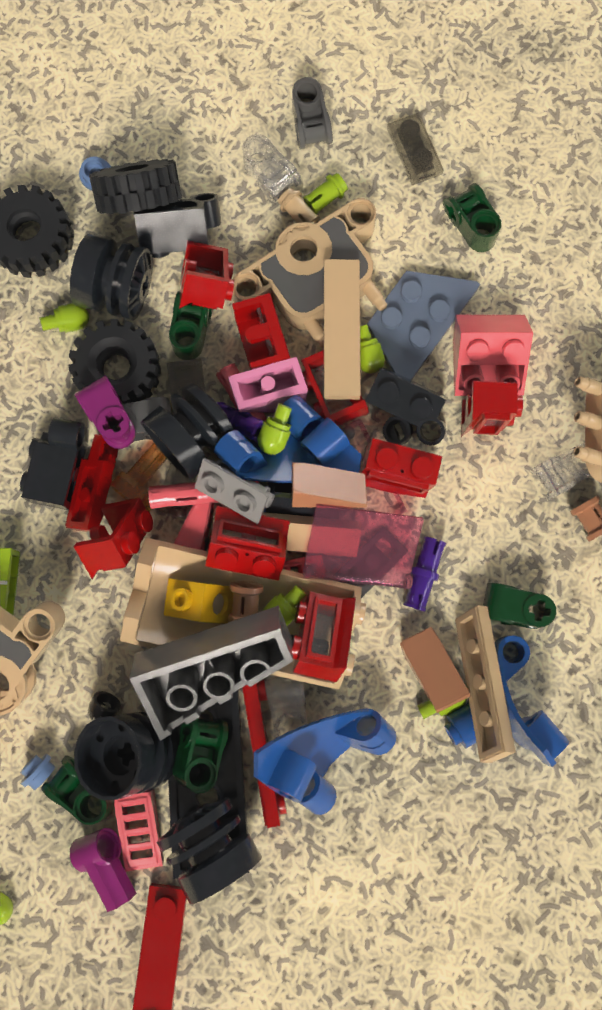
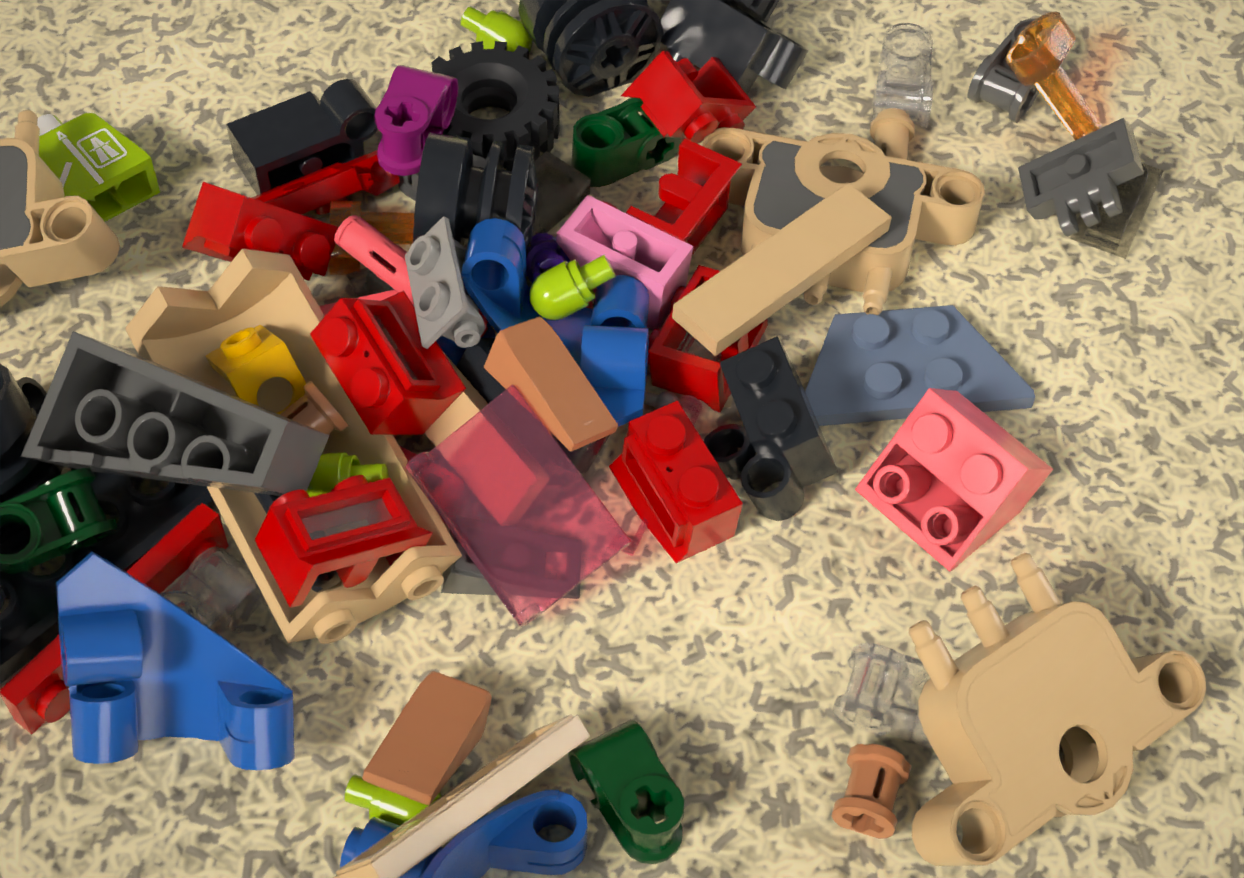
camera: 45 degrees right, 25 degrees down
(326, 192) = (947, 153): lime pin -> none
(332, 108) = (1037, 61): none -> clear orange piece
(371, 352) = (803, 335): lime cylinder -> none
(398, 153) = (1082, 176): none -> dark grey hinge
(424, 573) = (563, 634): dark purple pin -> none
(473, 212) = (1109, 326): dark green piece -> none
(490, 407) = (870, 512): red window -> none

